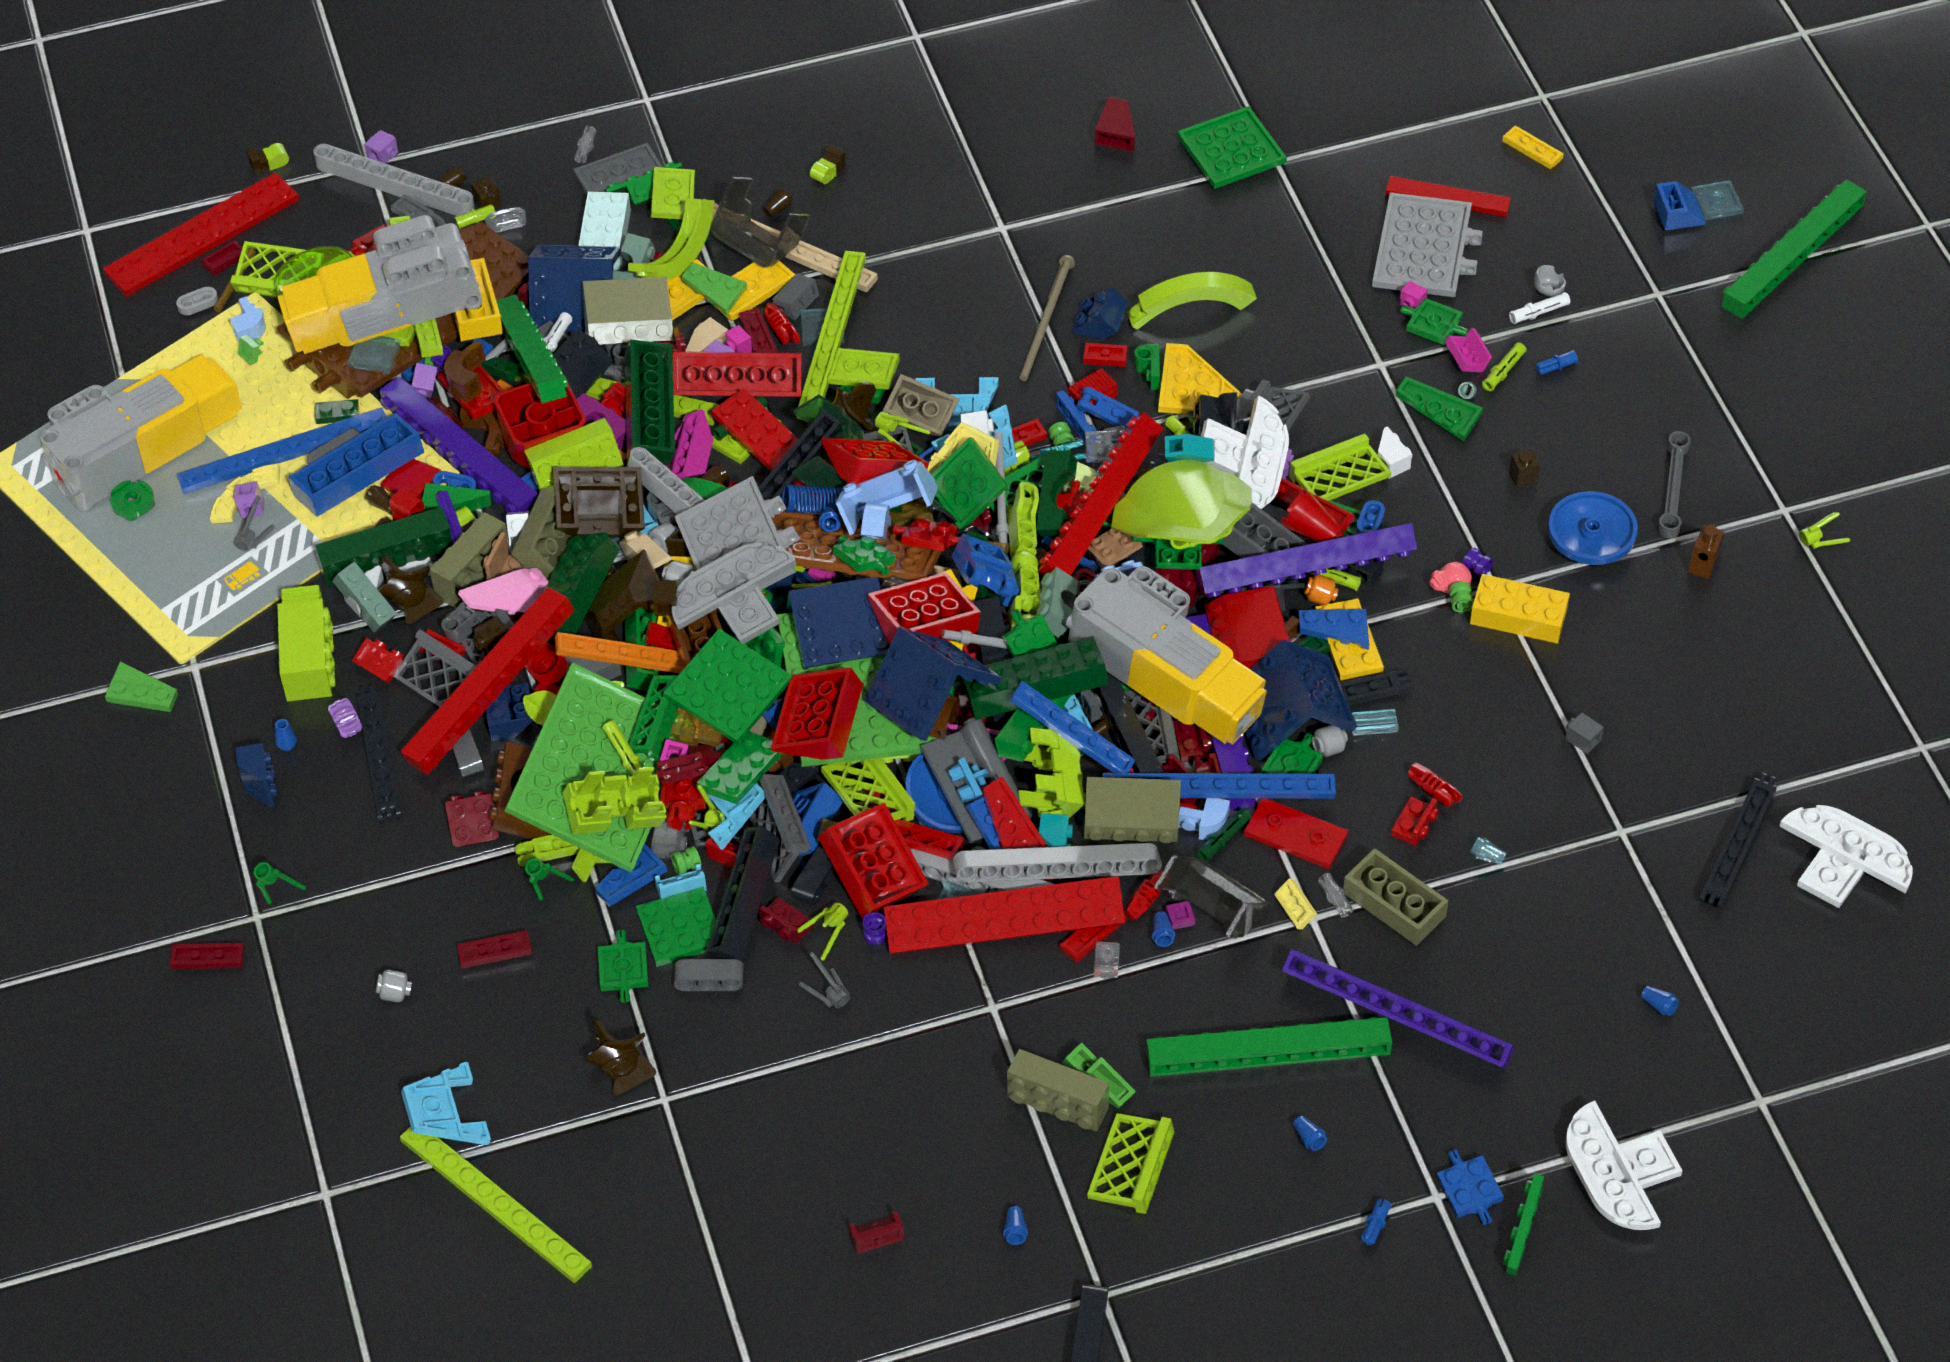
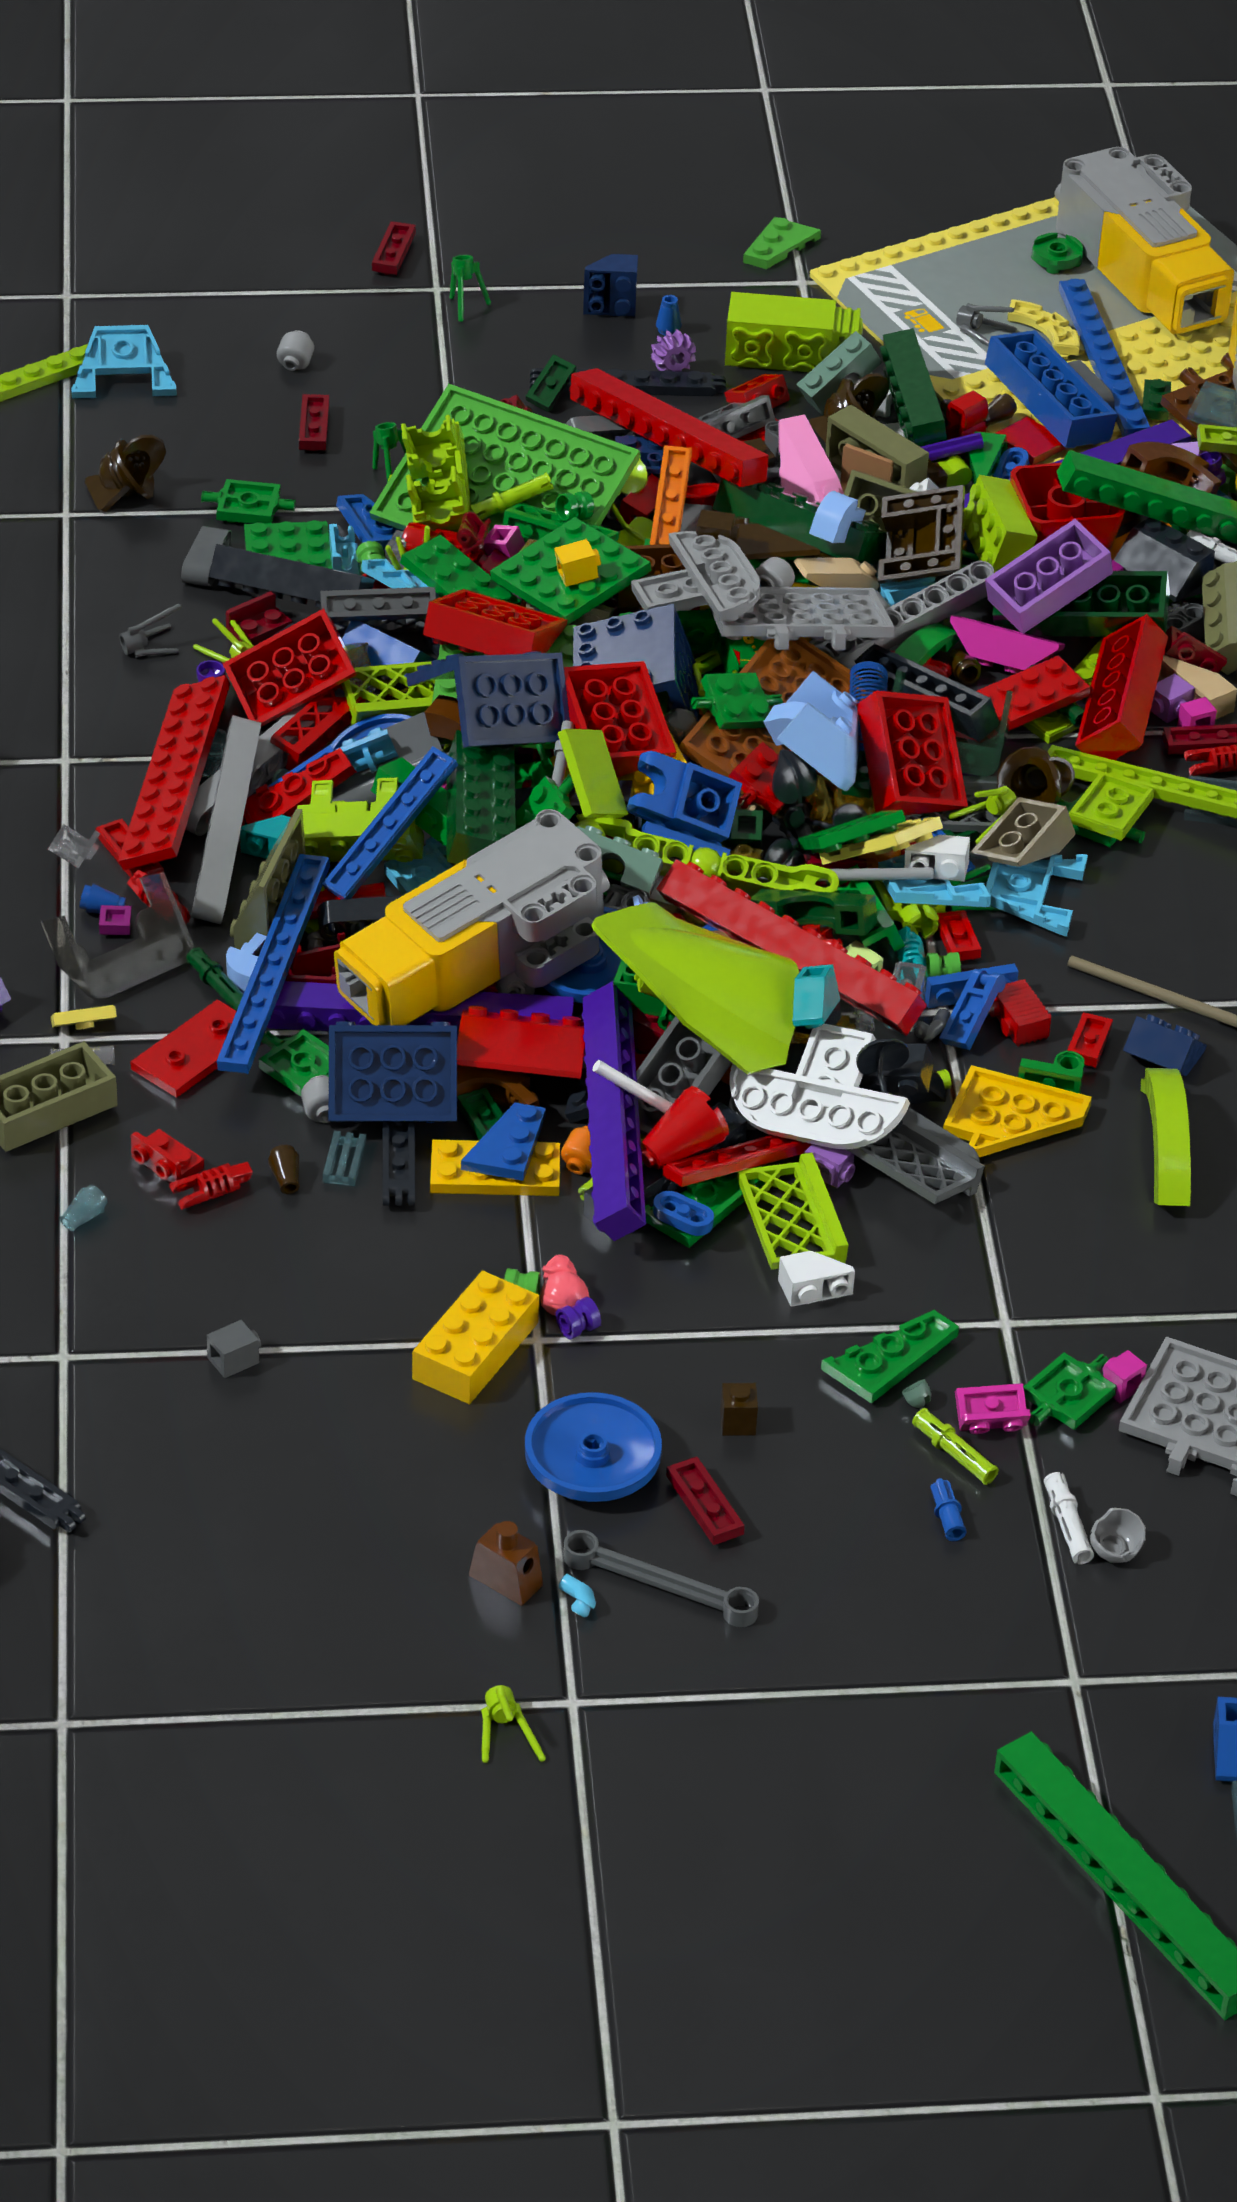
camera: 100 degrees right, 10 degrees down
(245, 496) = (1024, 316): medium lavender brick -> none
(406, 792) = (550, 383): none -> dark green plate
(598, 546) = (835, 516): none -> light blue brick
(640, 701) = (579, 506): none -> green wheel
(654, 404) = (1049, 576): none -> medium lavender brick
(742, 666) = (577, 562): none -> yellow brick
(1002, 603) = (592, 773): none -> lime tile
(1298, 539) = (631, 1086): none -> white bar
(1401, 748) = (285, 1167): none -> dark brown cone
(1604, 472) = (705, 1500): none -> dark red plate
(1702, 518) = (581, 1592): none -> medium azure arm

